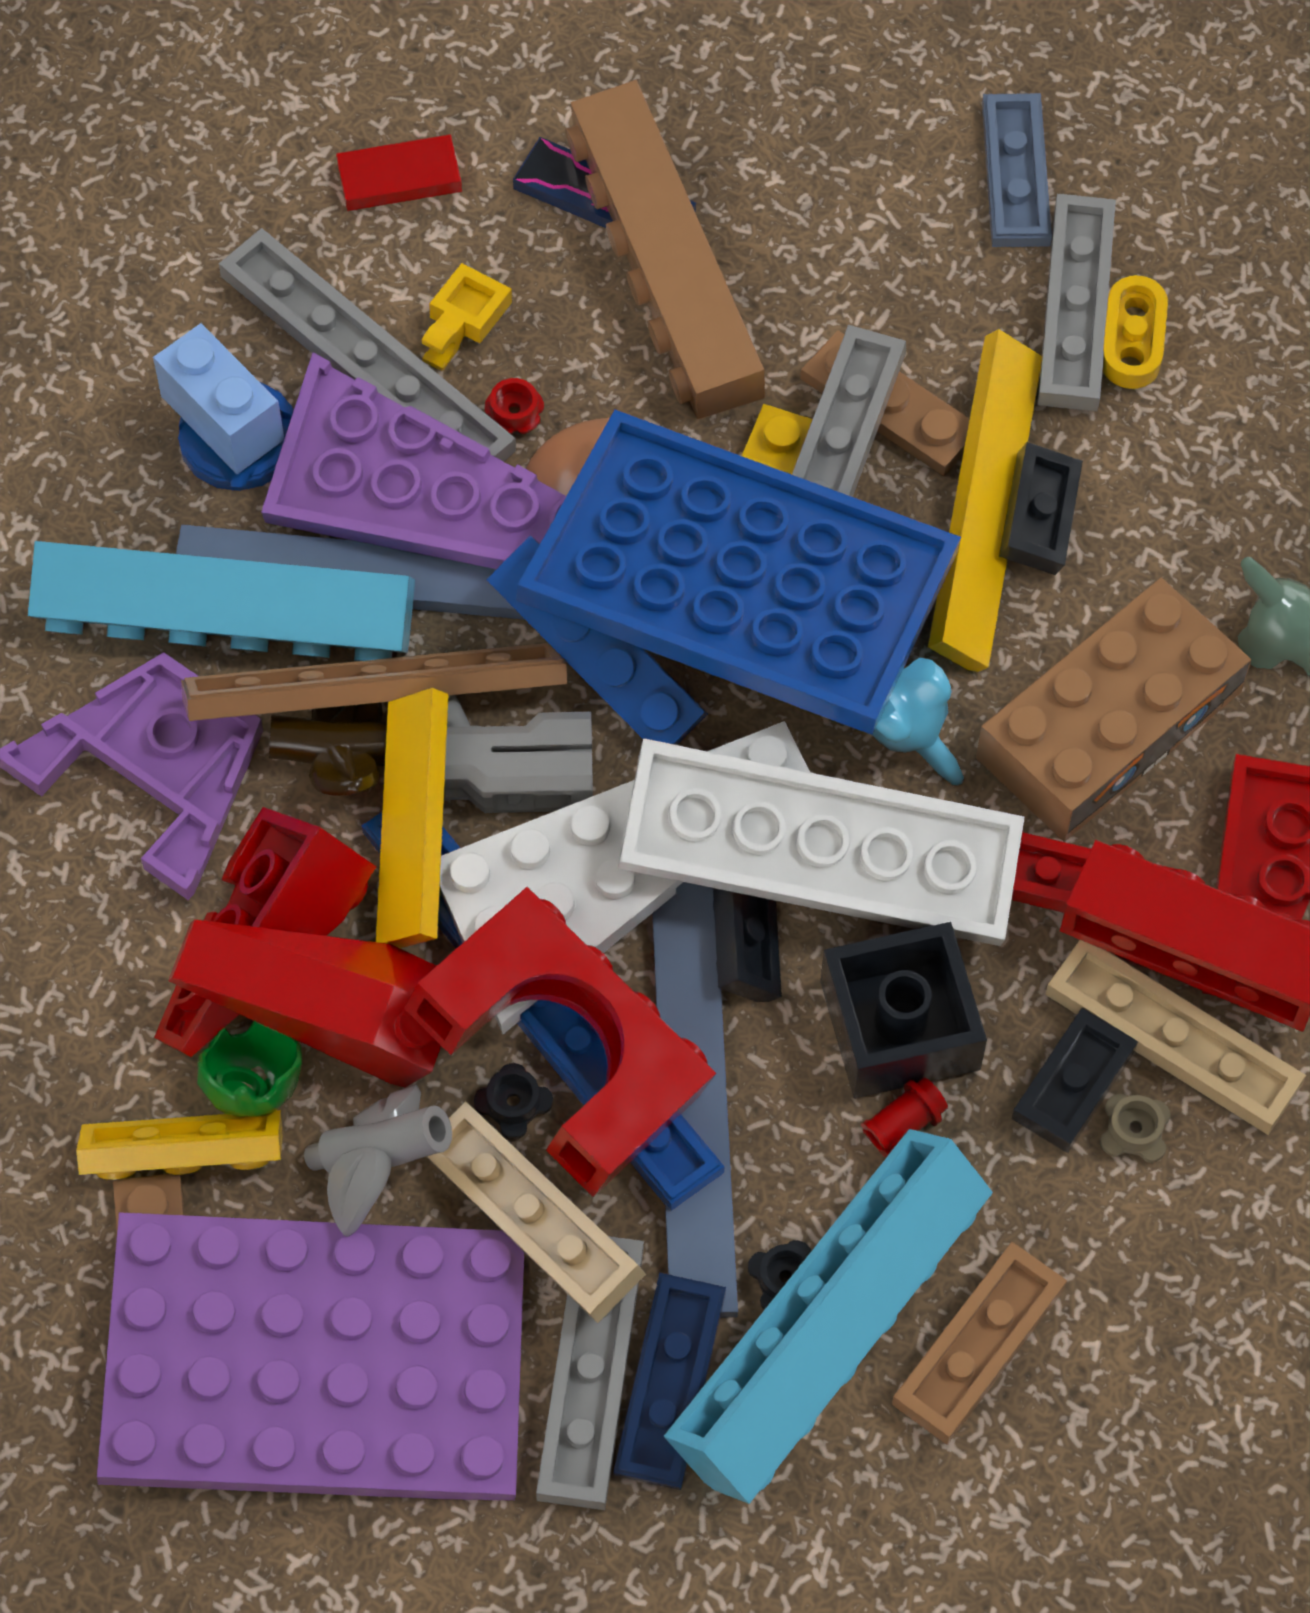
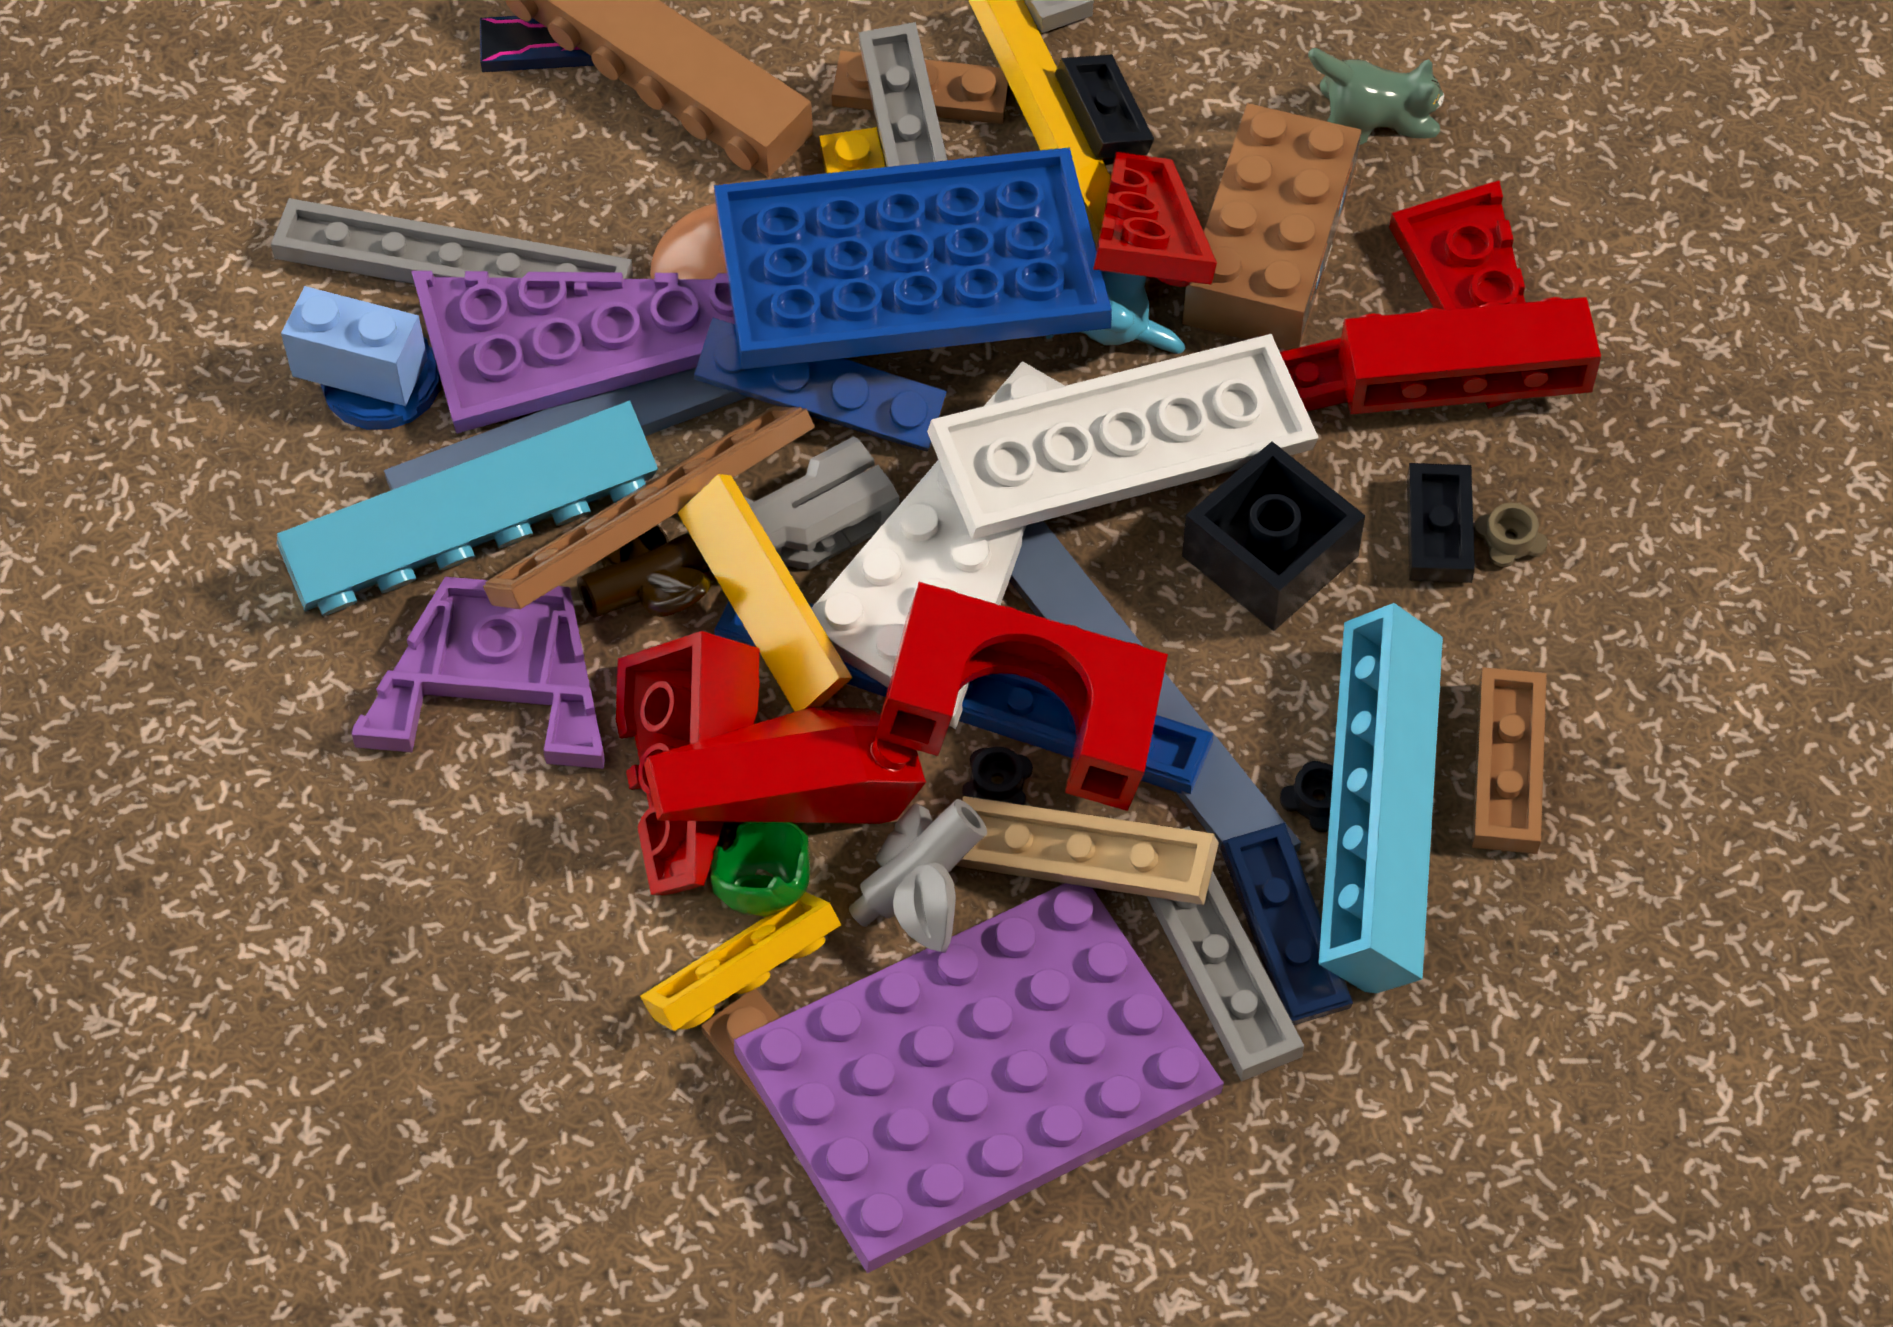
camera: 30 degrees left, 5 degrees down
(399, 172) = (374, 103): red tile -> none
(463, 307) = (511, 179): yellow plate -> none
(515, 393) = (609, 225): red plate -> none
(747, 945) = (1112, 562): black plate -> none
(912, 1110) = (1331, 607): red pin -> none
(984, 649) = (1152, 225): none -> red wing
(1178, 1035) = (1496, 446): tan plate -> none

